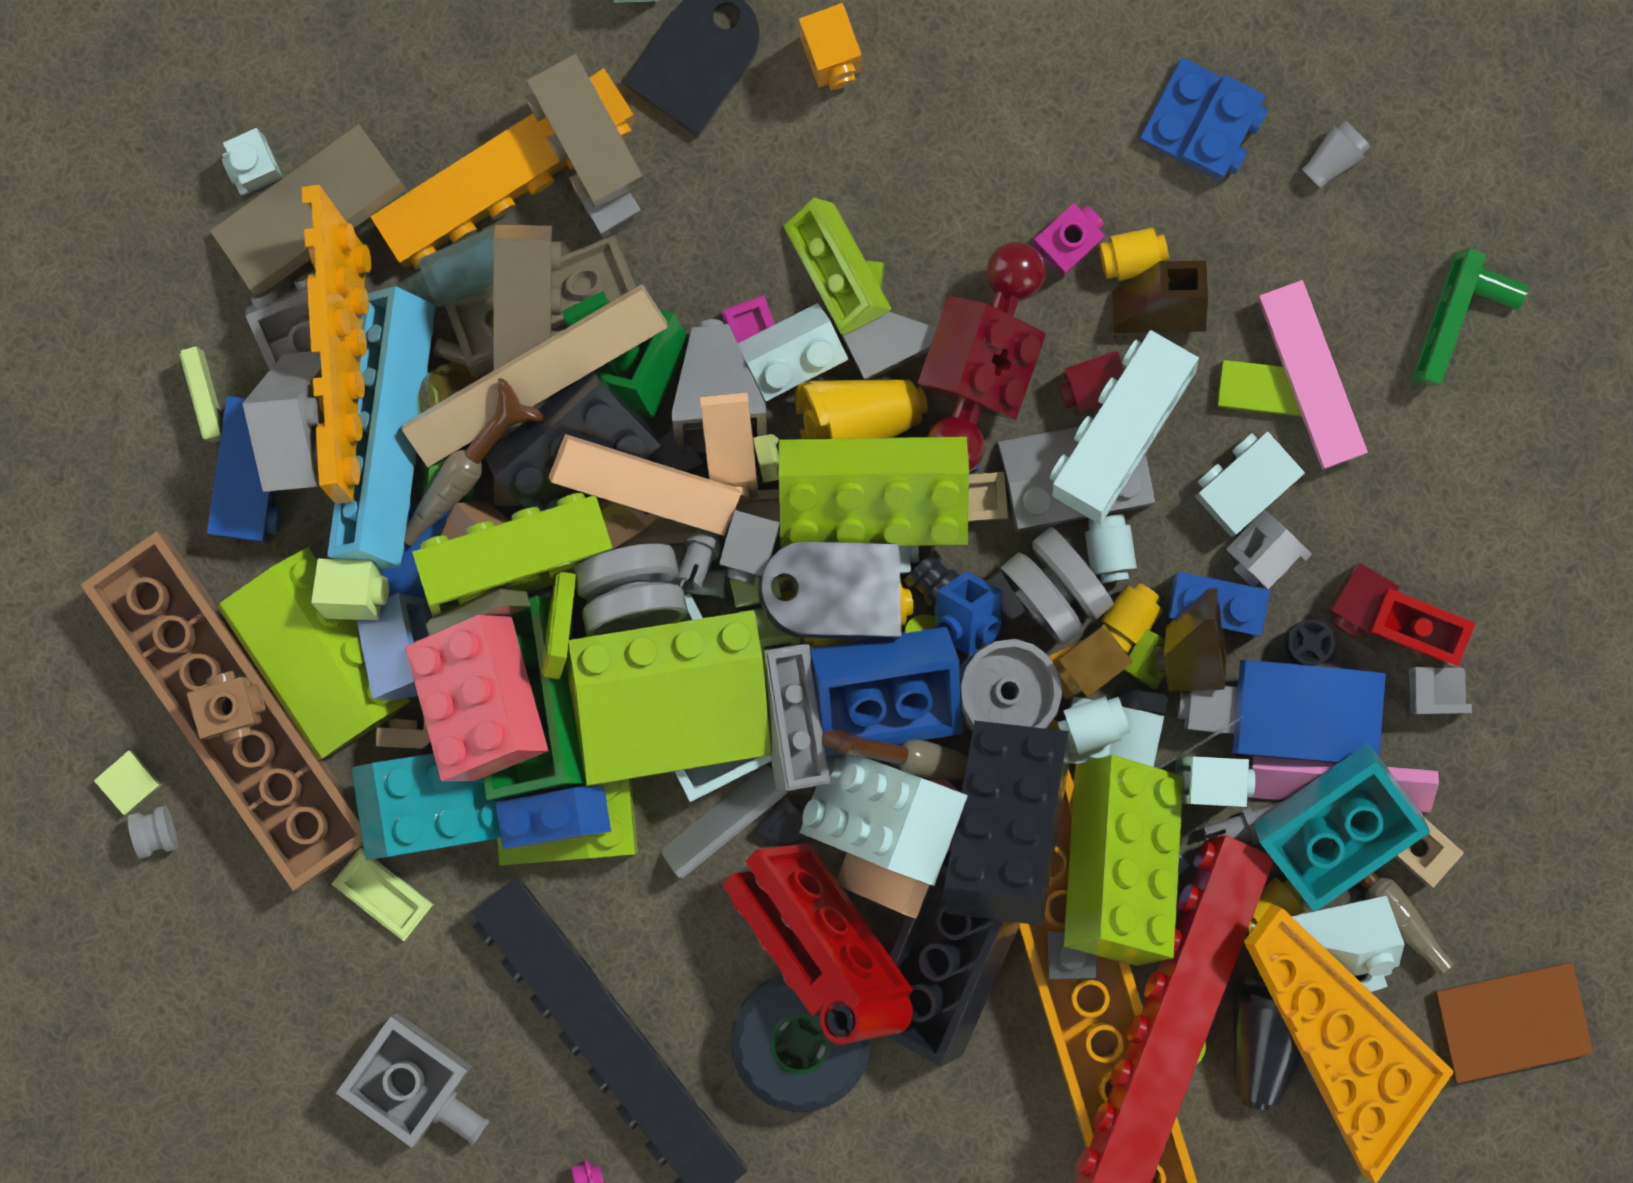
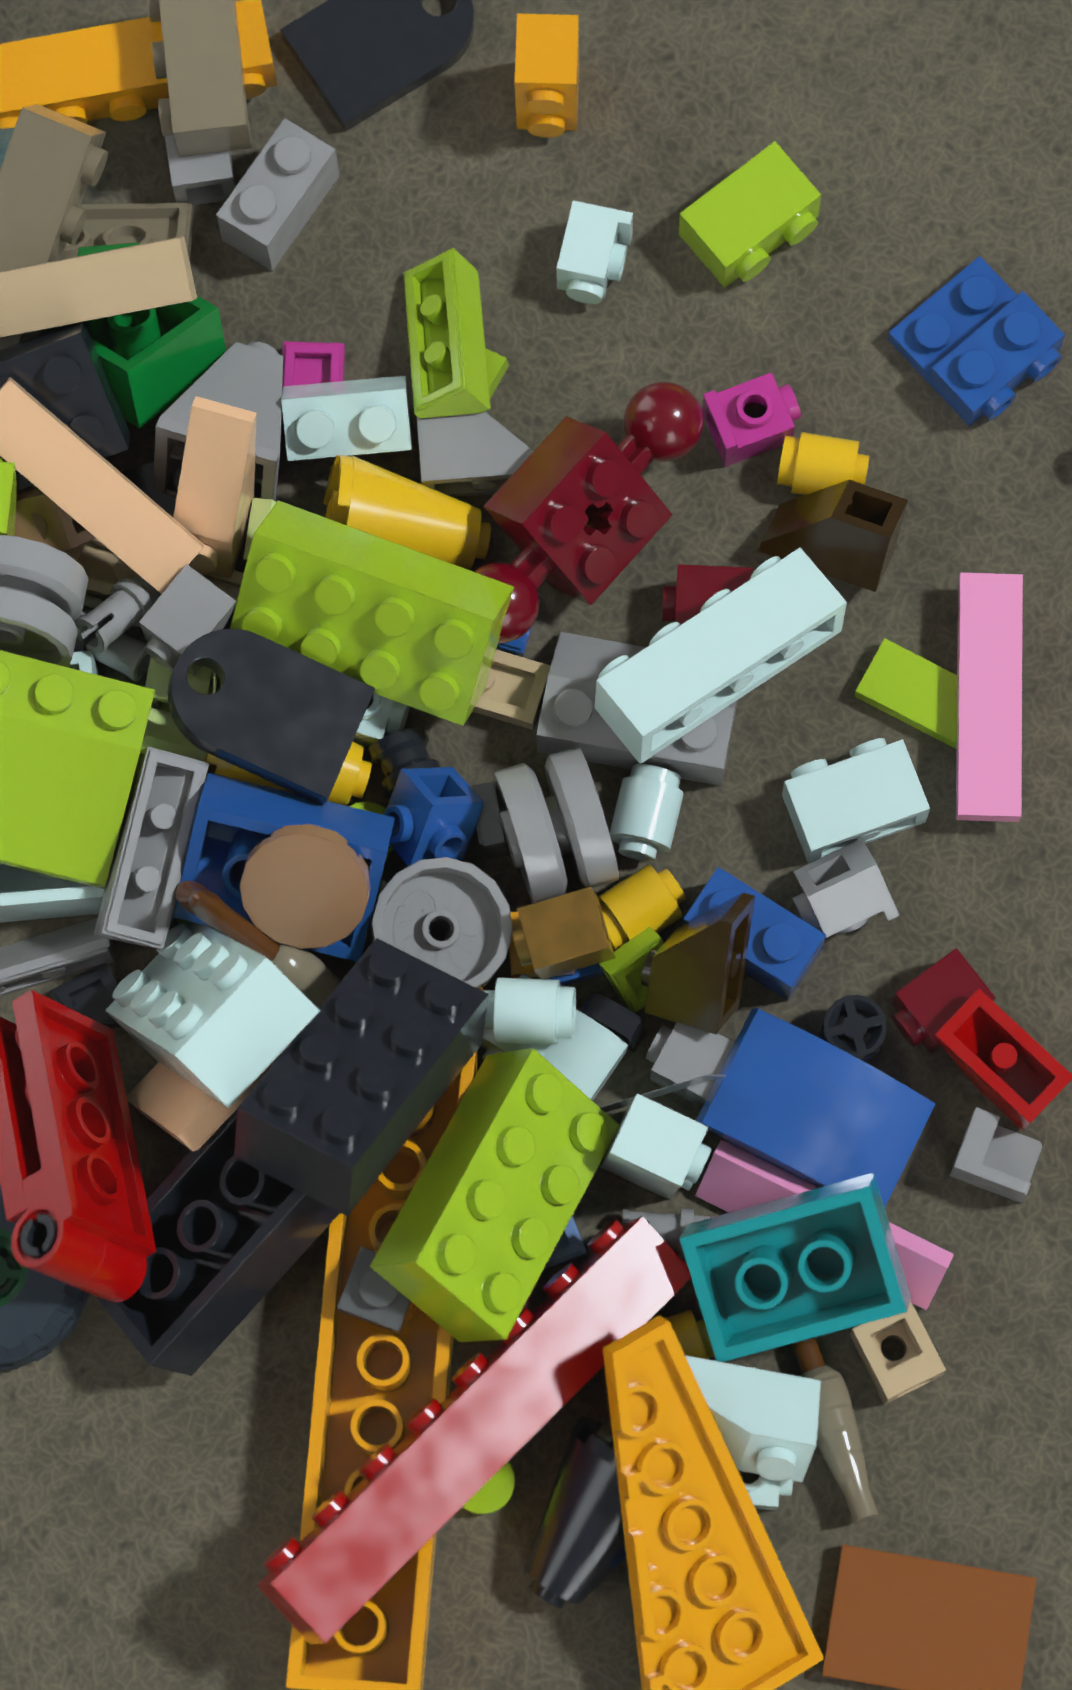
camera: 20 degrees right, 10 degrees down
(675, 206) = (278, 194): none -> light grey brick
(911, 162) = (592, 251): none -> light aqua brick
(911, 704) = (305, 886): none -> medium nougat tile
(1011, 92) = (751, 216): none -> lime brick

